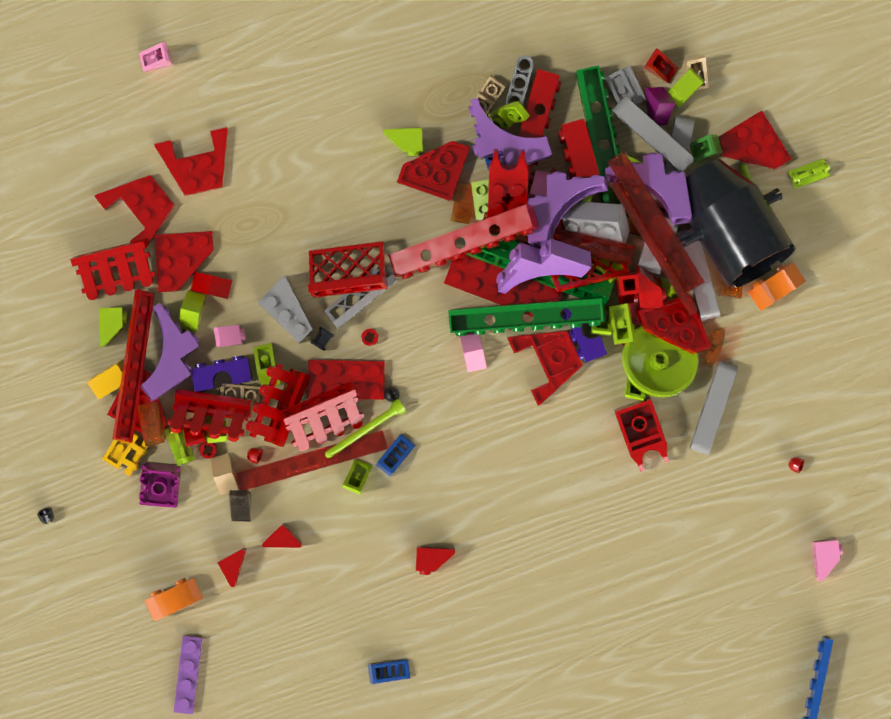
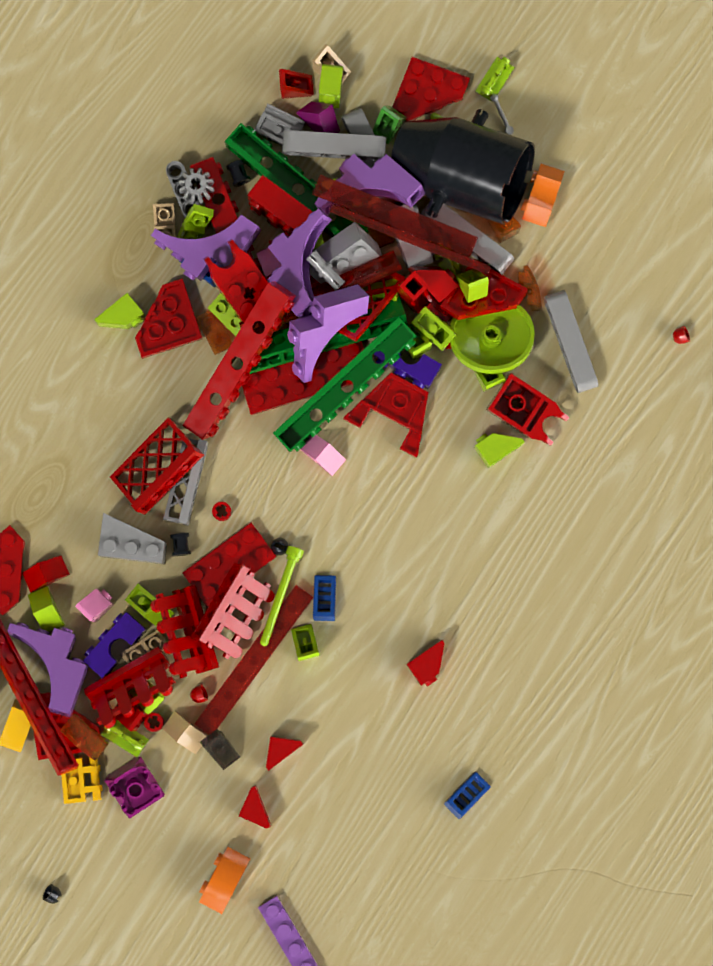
camera: 40 degrees left, 5 degrees down
(536, 92) = (205, 186): none -> light grey gear
(569, 100) = (238, 173): none -> black bush
(574, 224) = (325, 270): none -> light grey pin
(600, 442) = (496, 447): none -> lime slope
(674, 313) = (473, 284): none -> lime slope
(790, 219) = (508, 130): none -> light grey hinge

